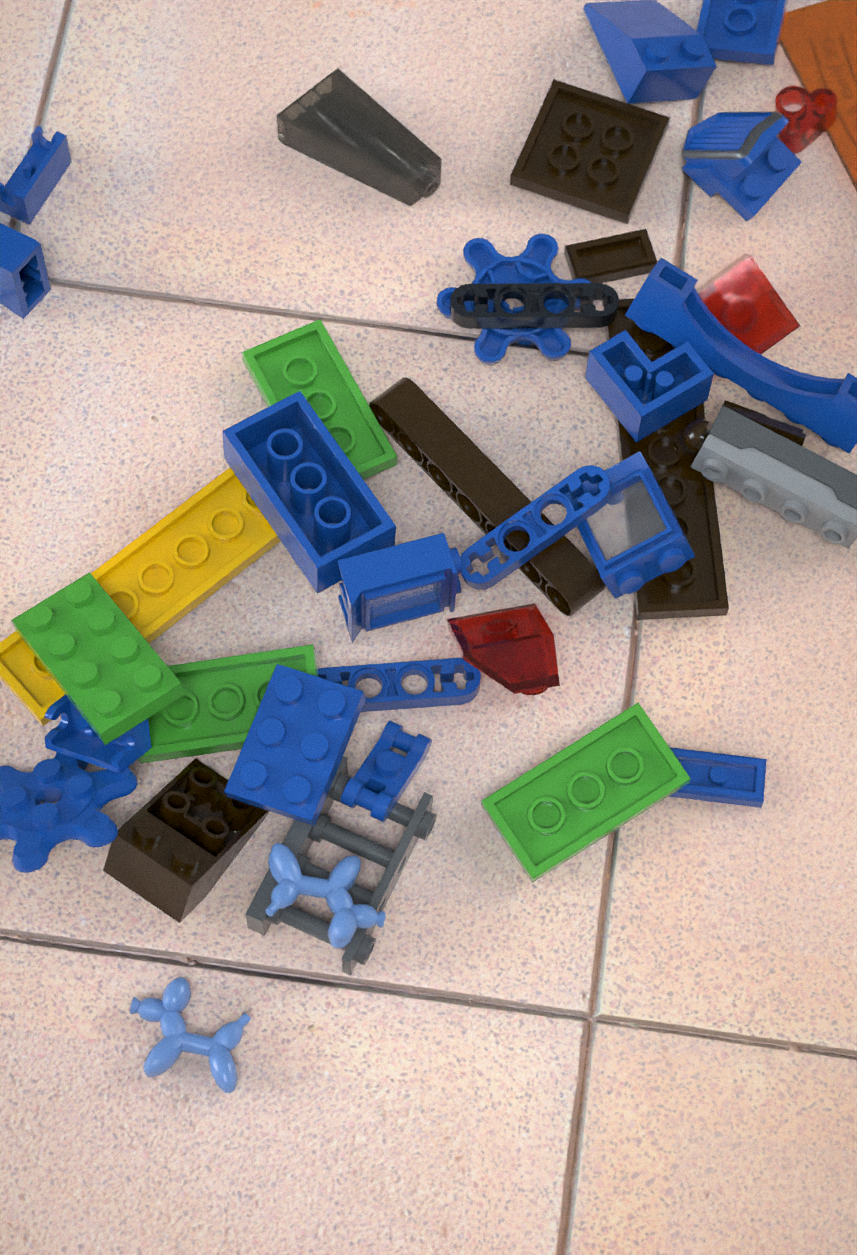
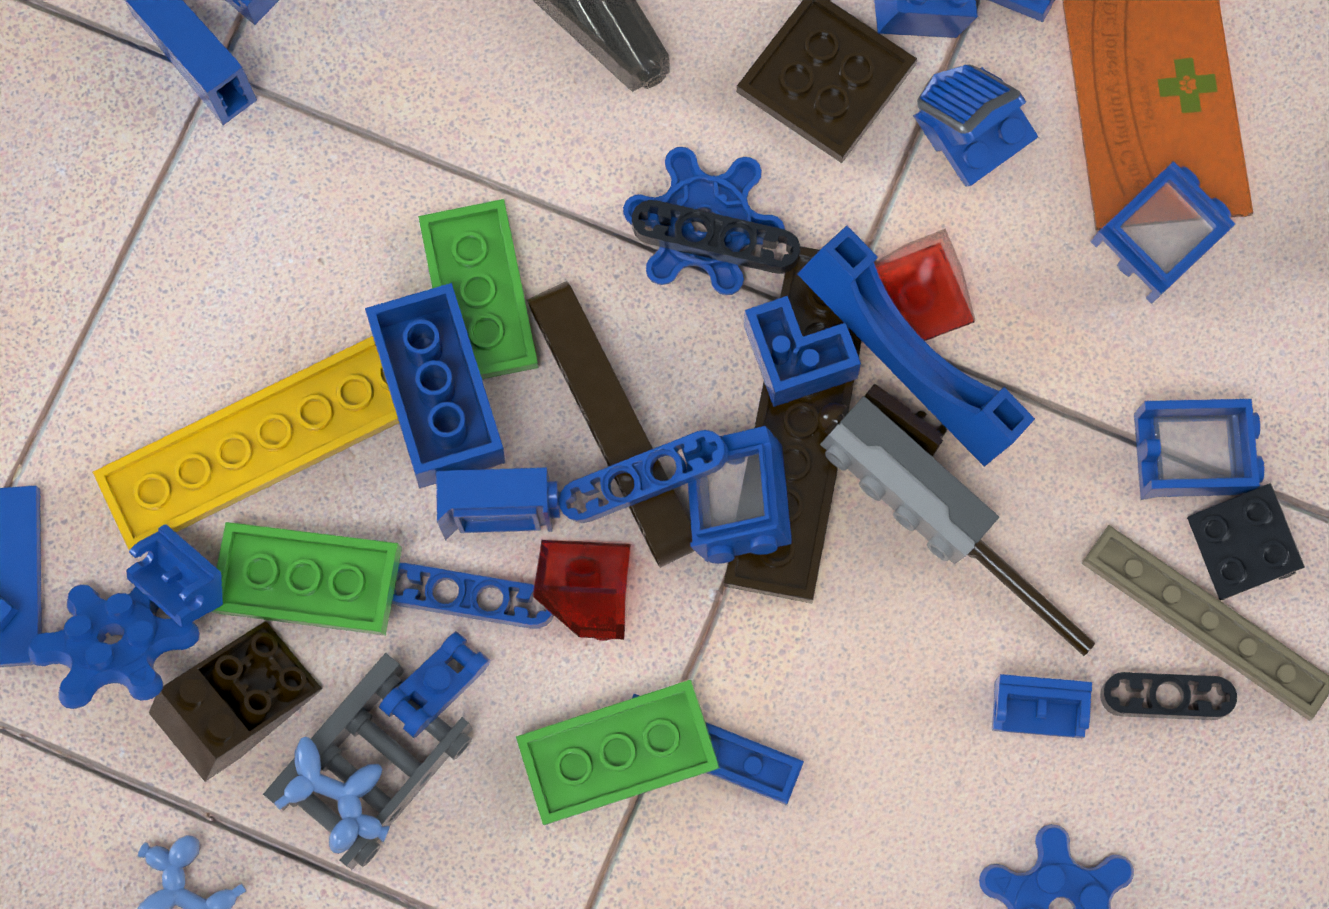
camera: 20 degrees right, 10 degrees up
(98, 658) = (190, 509): bright green plate -> none
(295, 744) = (352, 641): blue plate -> none
(611, 257) = (814, 196): dark brown tile -> none
(808, 123) = (1060, 93): clear red piece -> none

